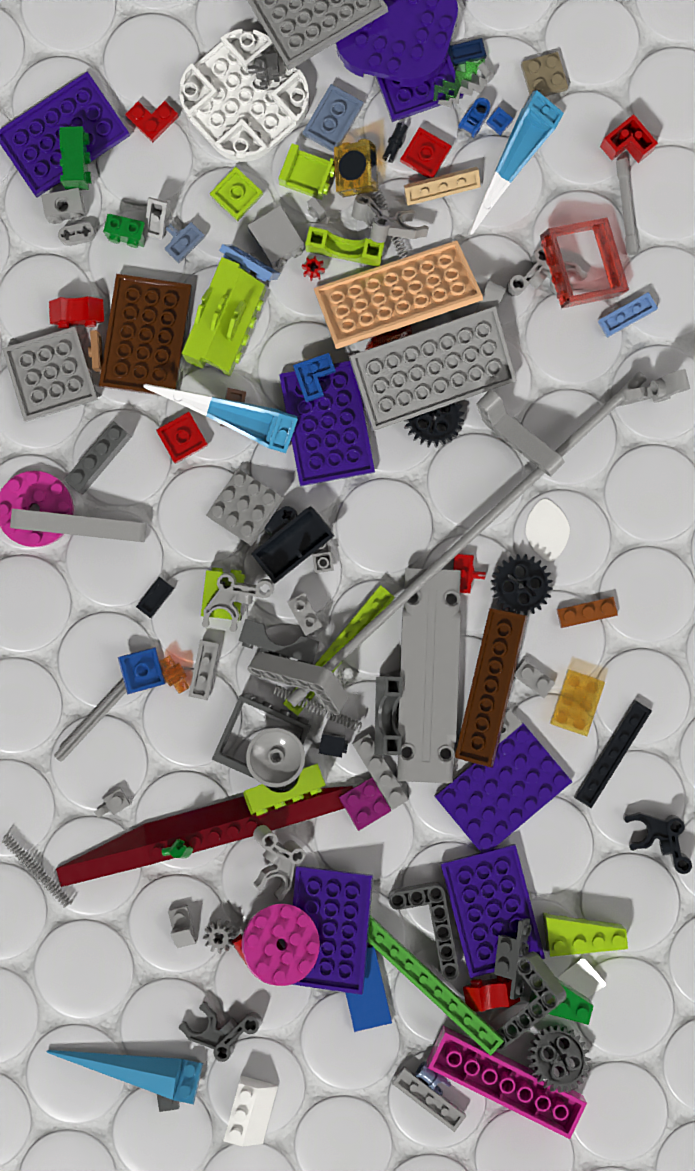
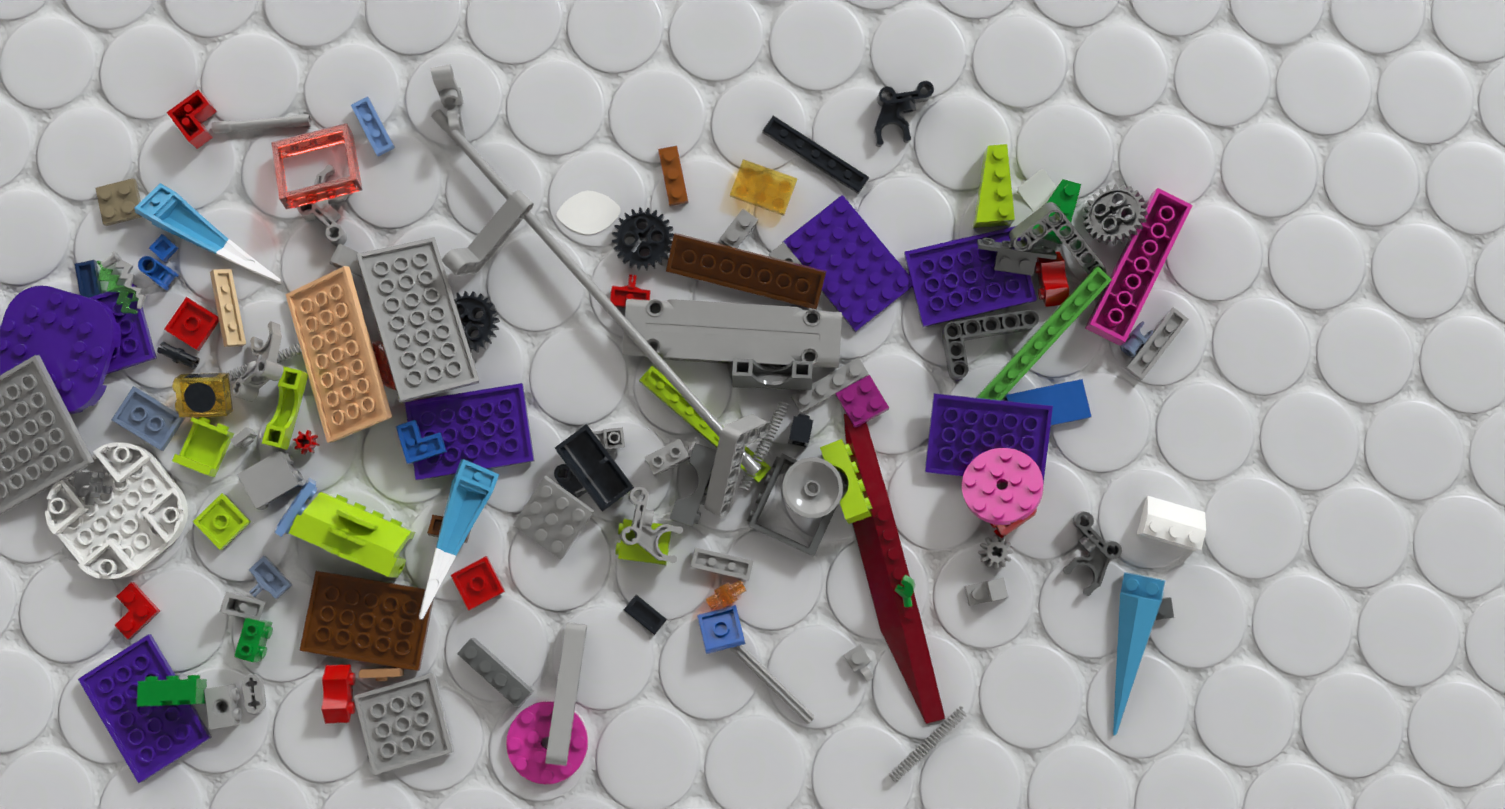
camera: 95 degrees left, 5 degrees down
(282, 856) = (917, 483): light grey piece -> none

